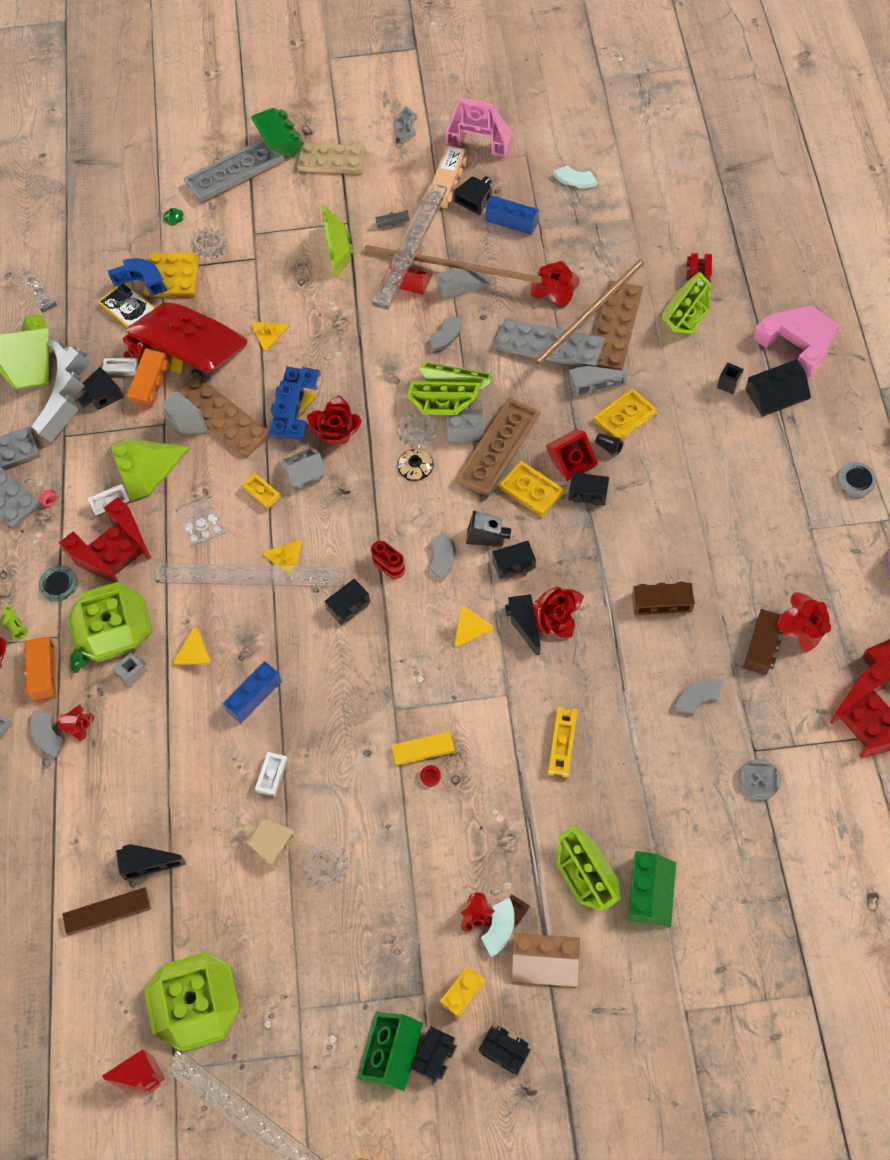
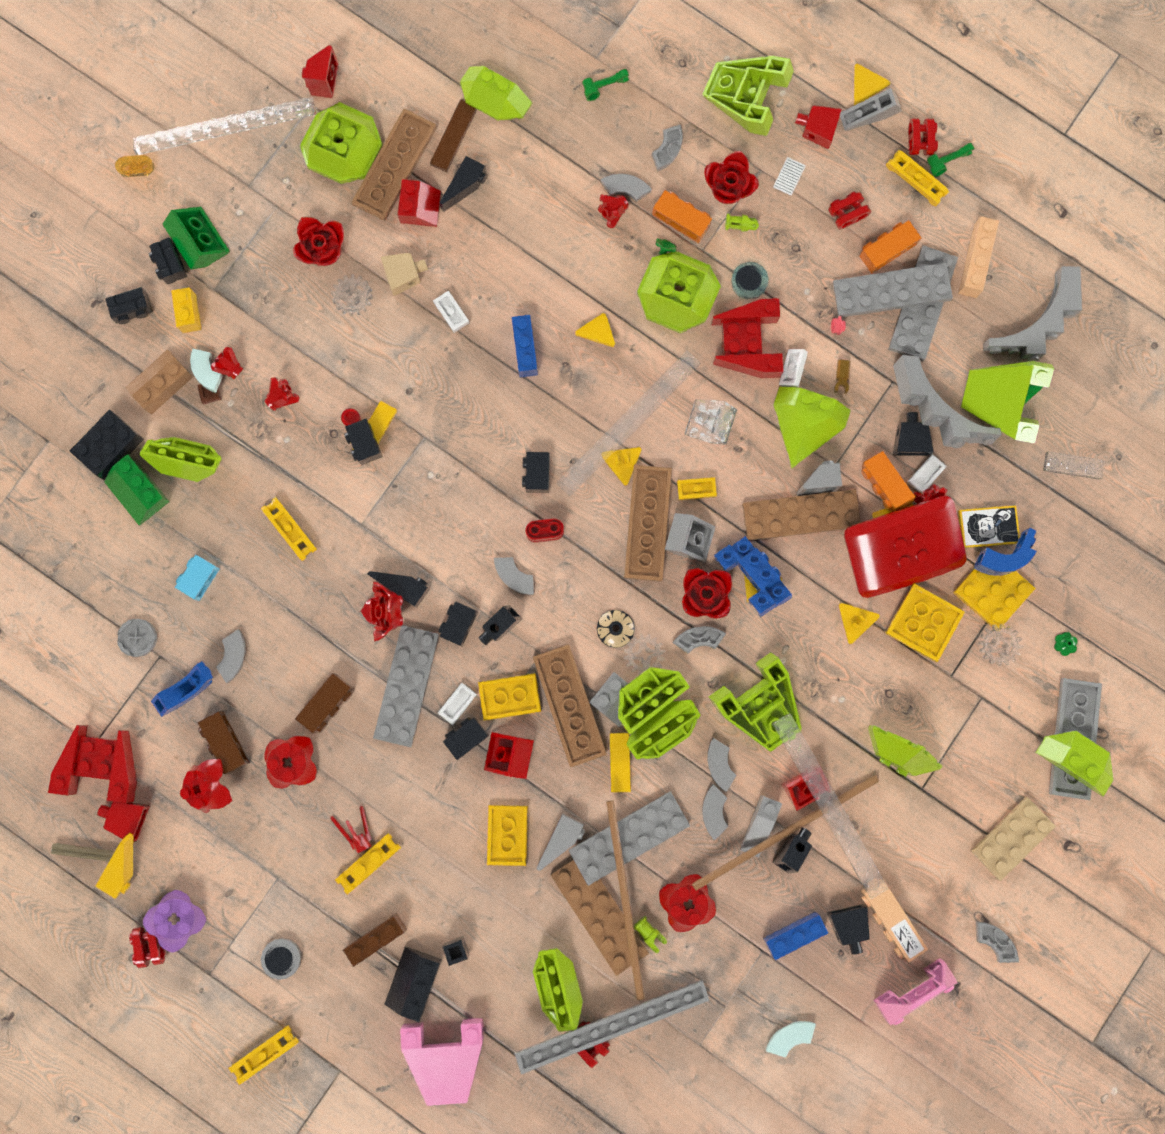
camera: 125 degrees right, 20 degrees up
(40, 910) = (494, 94): none -> lime wedge
(88, 466) = (842, 375): none -> pearl gold bar
(130, 669) = (623, 270): light grey brick -> none
(174, 936) = (393, 163): none -> medium nougat plate
(196, 883) = (418, 203): none -> red slope
(232, 293) = (925, 622): none -> yellow plate
(246, 156) = (1079, 759): none -> lime wedge
(278, 131) = (1084, 809): green slope -> none
(307, 914) = (312, 232): none -> red brick
(316, 501) = (648, 523): none -> medium nougat plate
(370, 410) = (698, 637): none -> light grey tile
(380, 335) = (761, 704): none -> lime wedge
(392, 218) = (888, 828): dark grey pin -> none
(441, 740) = (363, 442): none -> black brick
(461, 249) = (788, 857): none -> black torso
(463, 843) = (280, 394): none -> red rock
(470, 626) = (434, 542): yellow piece -> none
(479, 316) = (712, 812): none -> light grey tile
(506, 388) = (619, 762): none -> yellow tile
(570, 517) = (457, 703): none -> white tile
(594, 558) = (406, 686): none -> light grey plate
(597, 288) = (649, 933): none -> lime piece
(609, 443) = (491, 795): black cone -> none
(639, 948) = (106, 444): none -> black brick
(669, 773) = (196, 577): none -> medium azure brick
(676, 258) = (611, 1027): none -> light grey plate
(728, 495) = (358, 842): none -> red plant
(729, 598) = (300, 751): none -> red brick
(737, 480) = (368, 863): none -> yellow plate
(758, 704) = (184, 690): none -> blue arch
(778, 431) = (374, 939): none -> reddish brown brick

